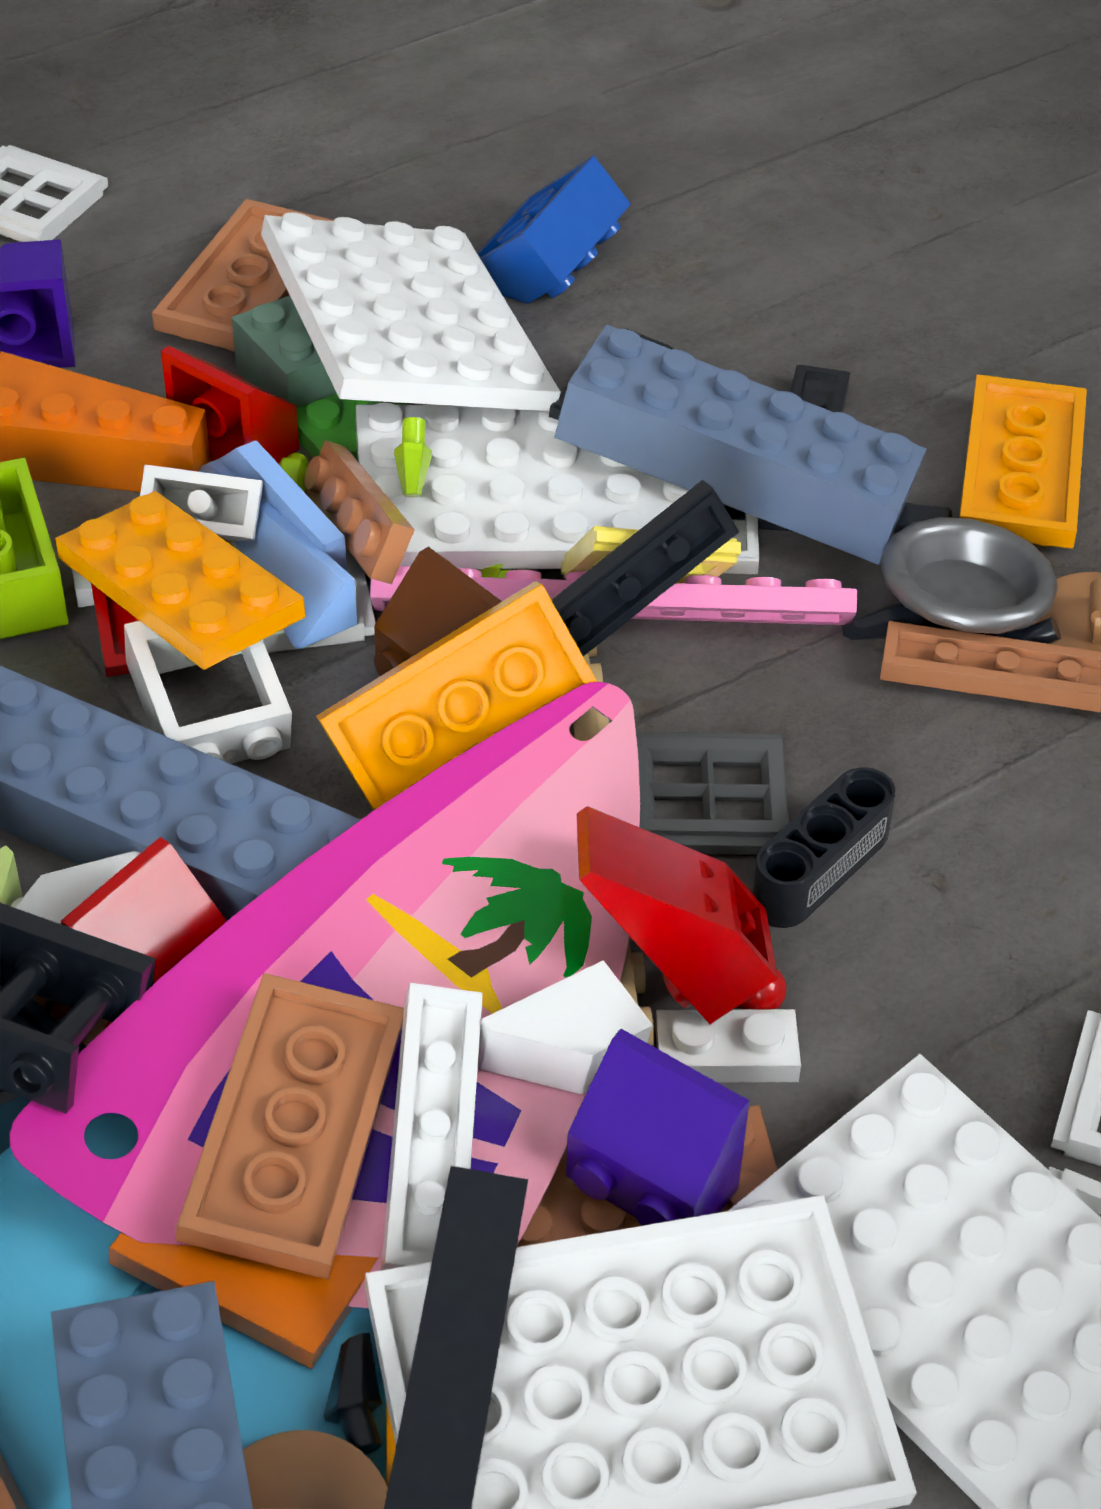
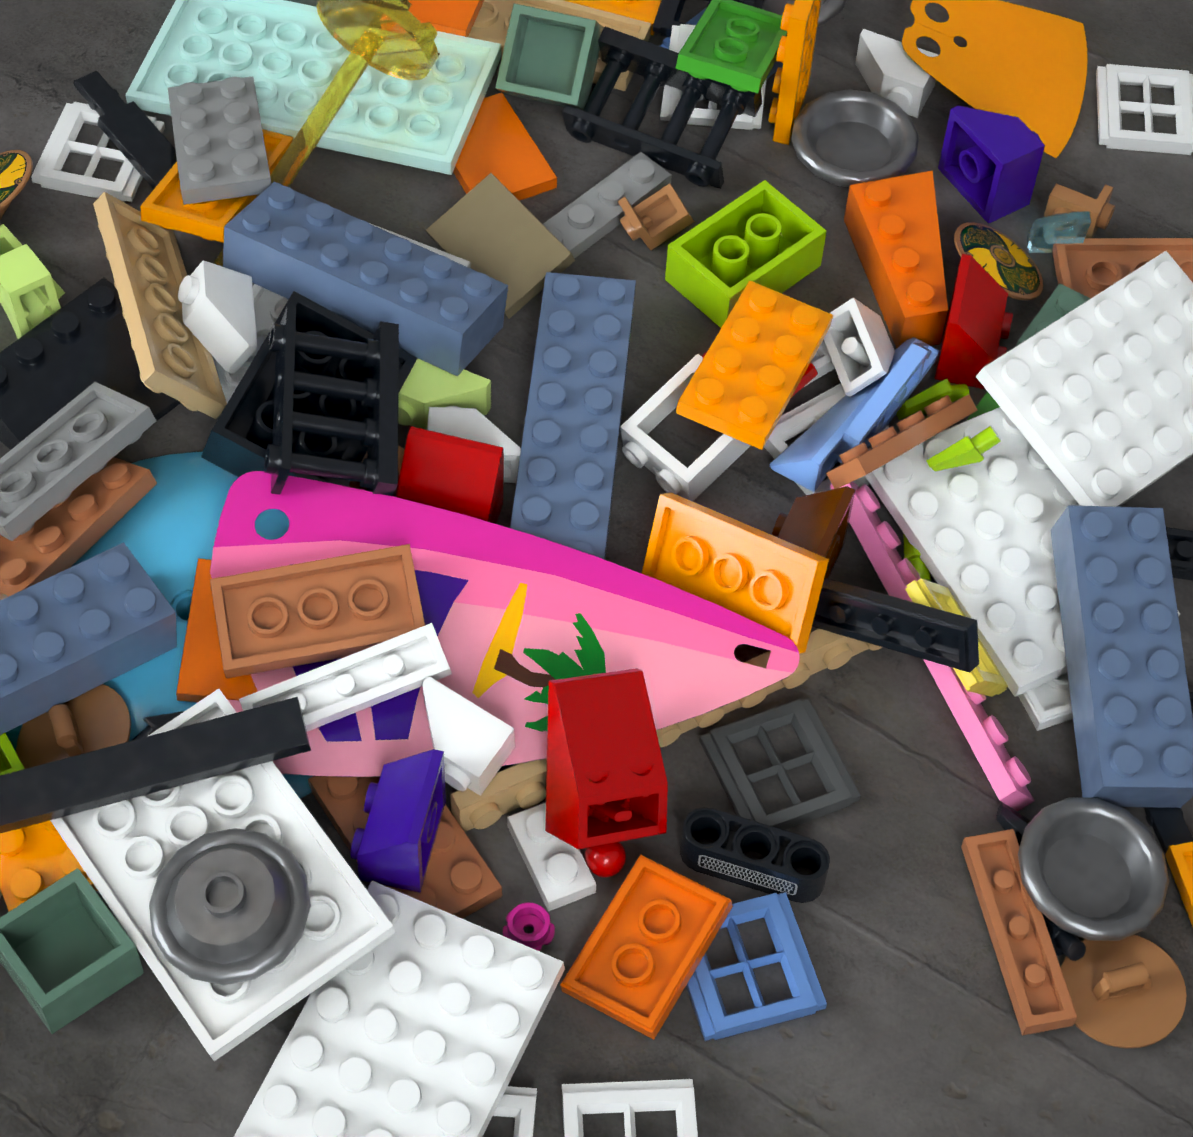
camera: 65 degrees right, 10 degrees up
(126, 287) = (1067, 200): none -> medium nougat bracket
(134, 364) = (1001, 259): none -> shield
(155, 292) = (1058, 229): none -> clear light blue slope
(715, 1379) = (229, 906): none -> flat silver piece
(828, 1085) = (529, 915): none -> dark pink plate
(902, 983) = (646, 946): none -> orange tile
(952, 958) = (789, 952): none -> medium blue piece

